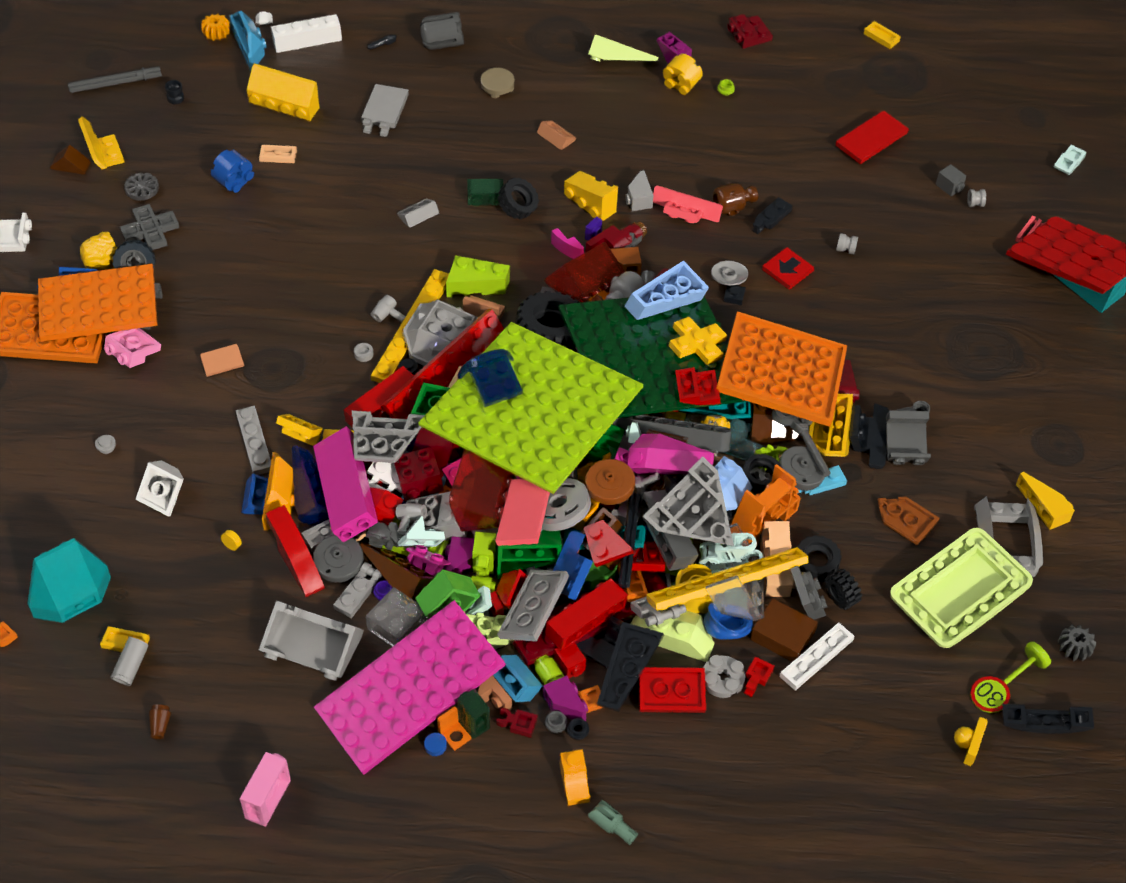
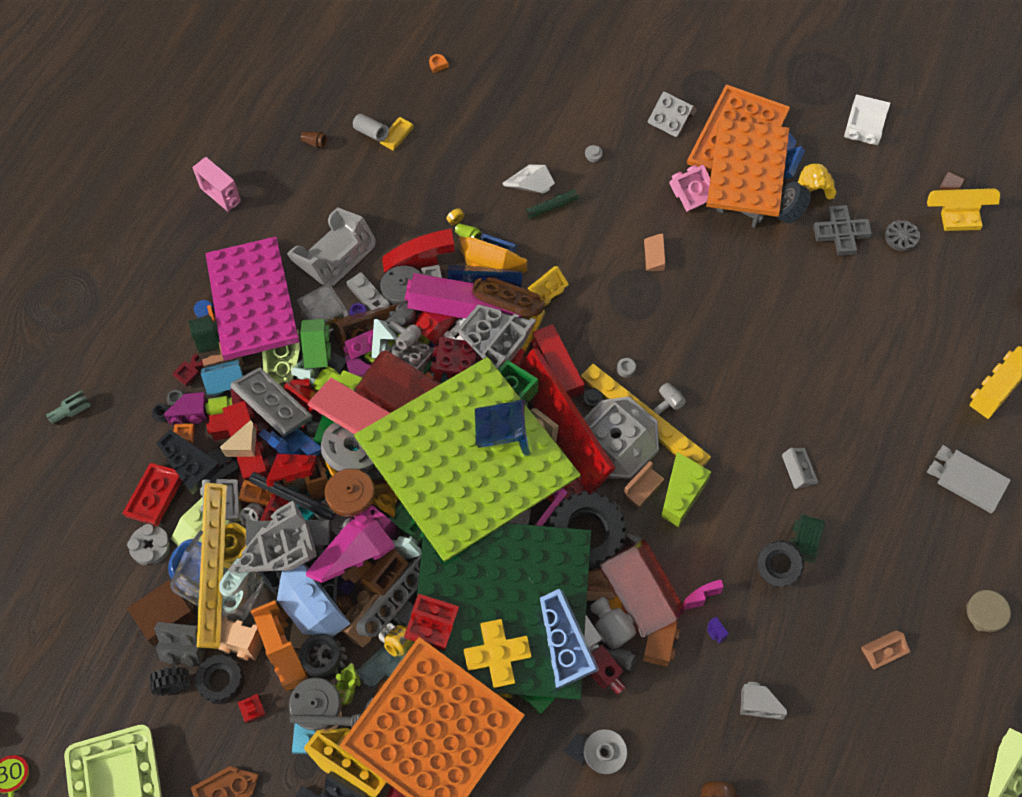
camera: 115 degrees right, 10 degrees up
(34, 387) = (671, 114): none -> light grey bracket
(66, 582) = (447, 97): teal wedge -> none
(181, 455) = (558, 201): none -> clear green pin
(232, 170) = (895, 306): blue brick -> none
(249, 521) = (468, 231): none -> lime cone
(254, 440) = (558, 257): light grey plate -> none
(278, 154) = (917, 374): light nougat tile -> none
(330, 445) = (508, 297): none -> reddish brown tile
(574, 777) = (122, 393): light orange arch -> none
(592, 195) = (768, 644): yellow wedge -> none
(595, 598) = (241, 443): none -> tan slope
(616, 238) = (691, 650): dark red plate -> none
(658, 580) = (247, 513): none -> light grey wheel
(686, 206) = (721, 743): coral bracket -> none
(757, 673) = (133, 573): red plate -> none
(816, 656) = (124, 632): white plate -> none
(827, 526) = (251, 708): none -> red tile

